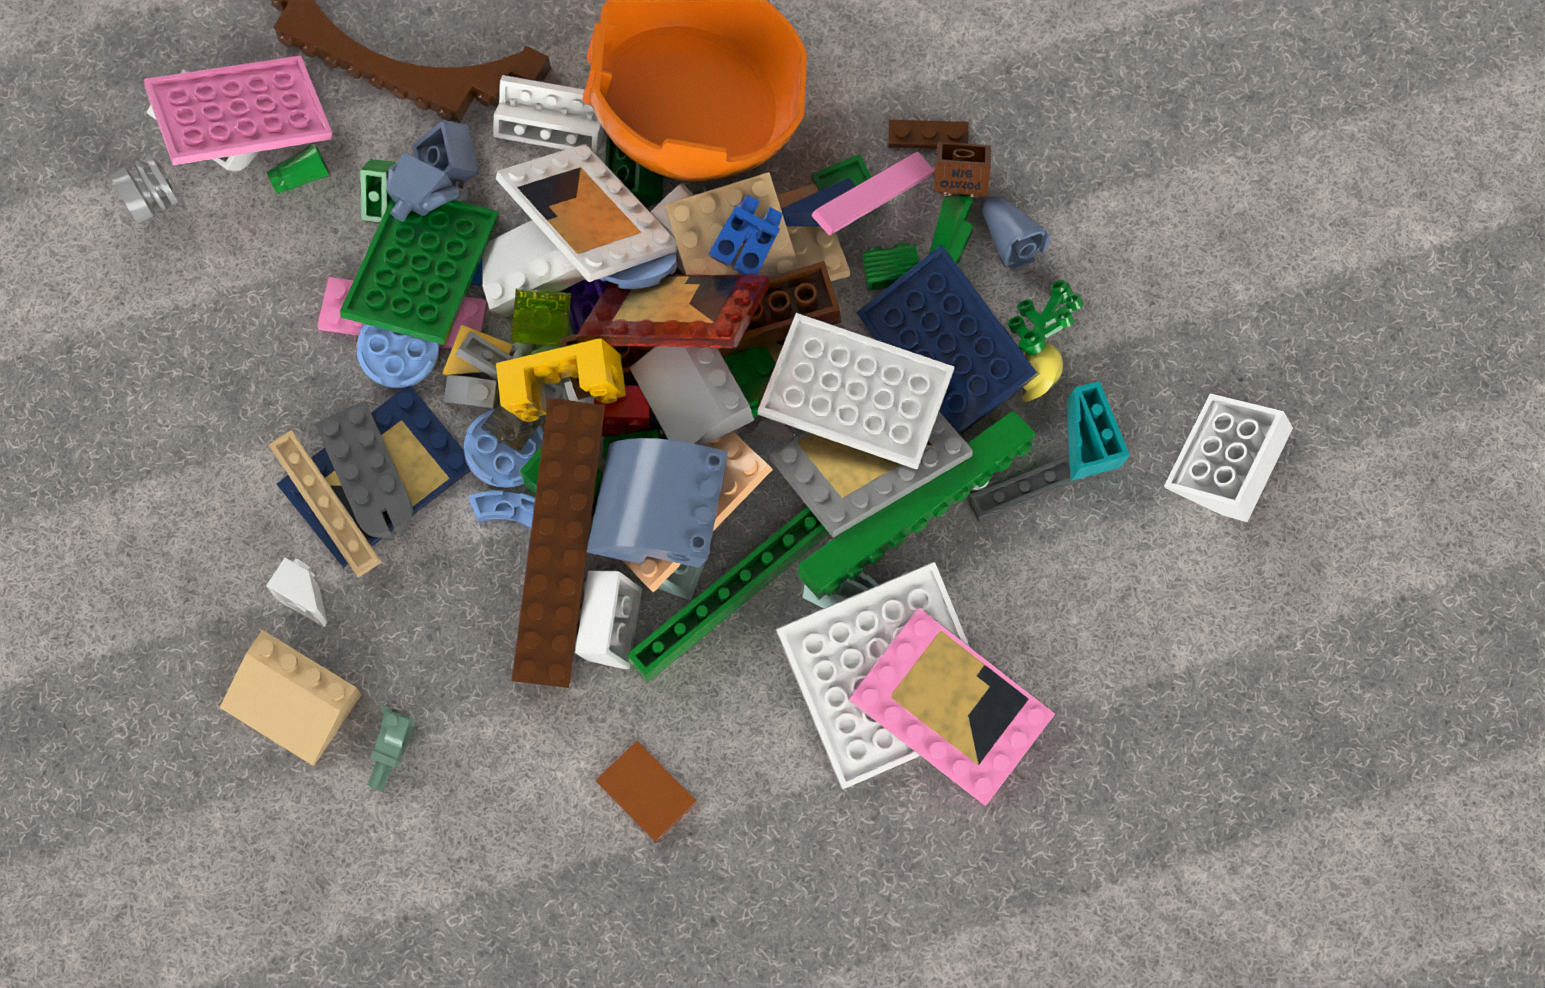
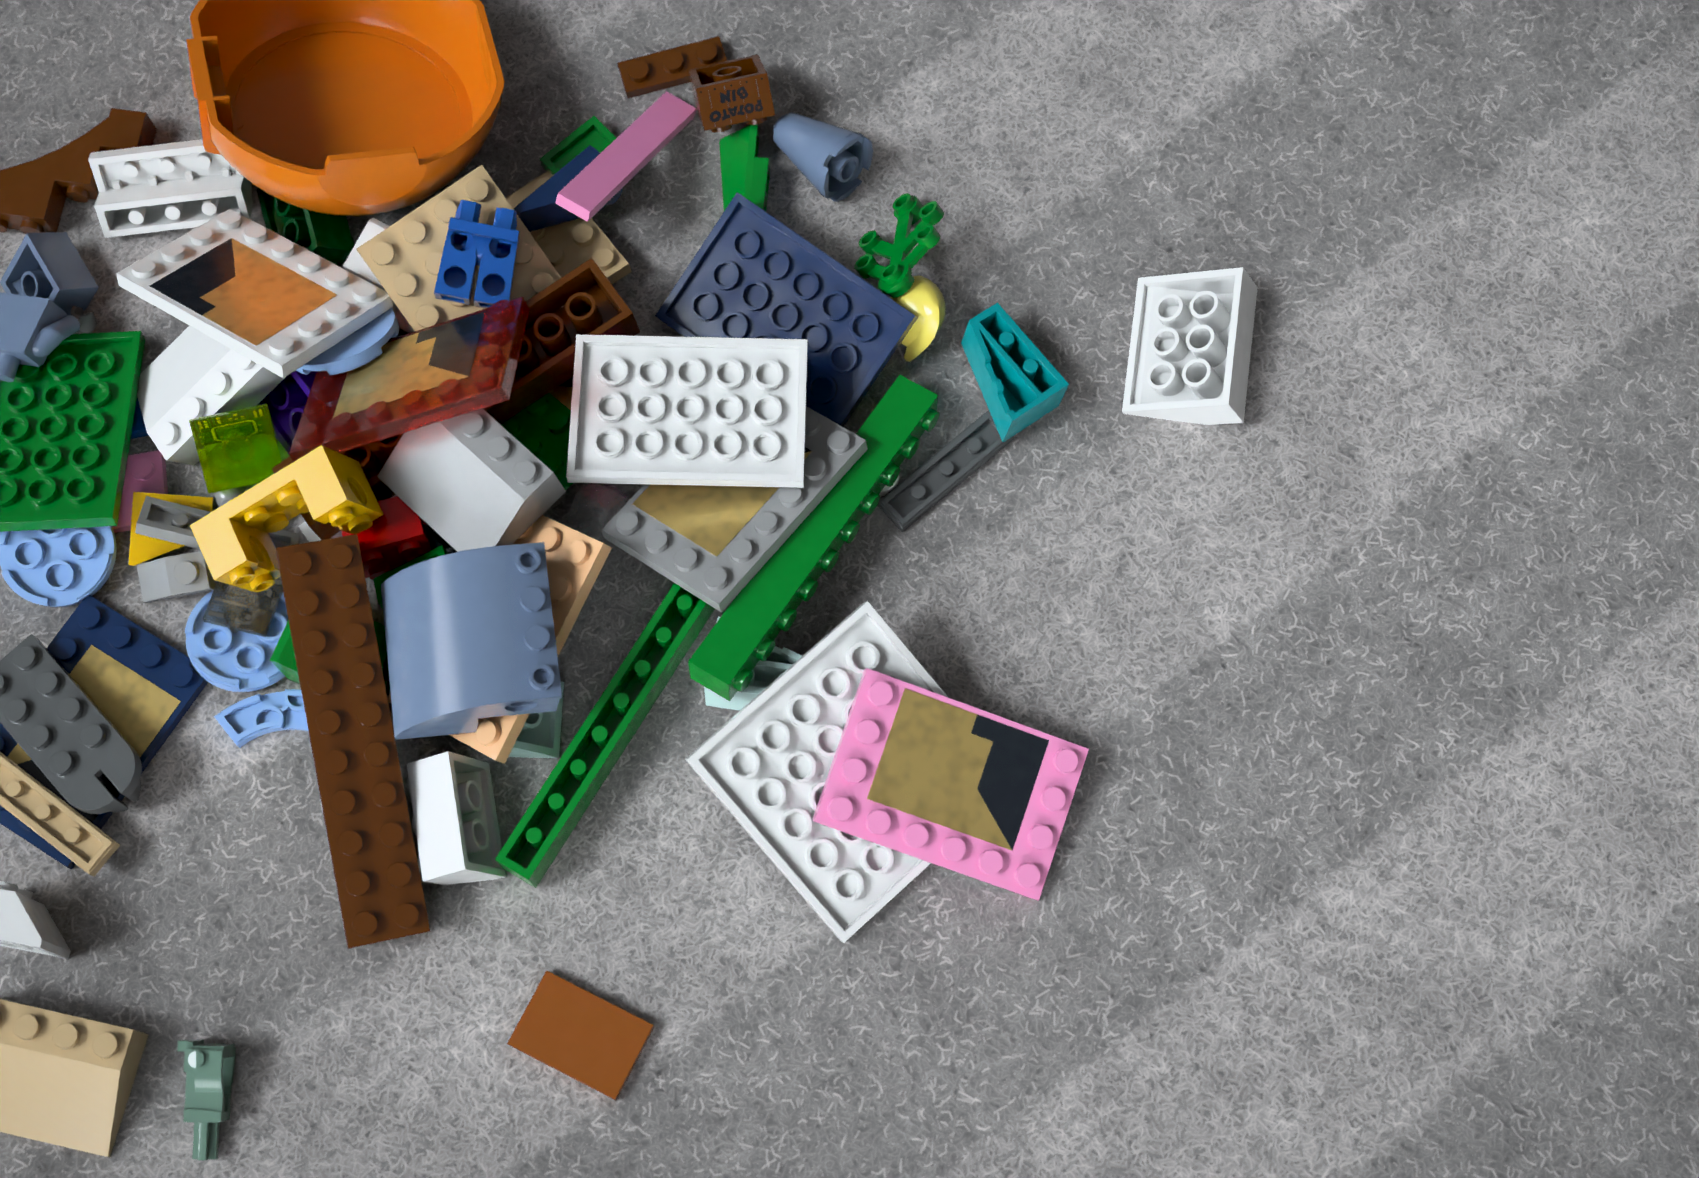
camera: 20 degrees left, 0 degrees up
(886, 266) = (674, 244): green brick -> none

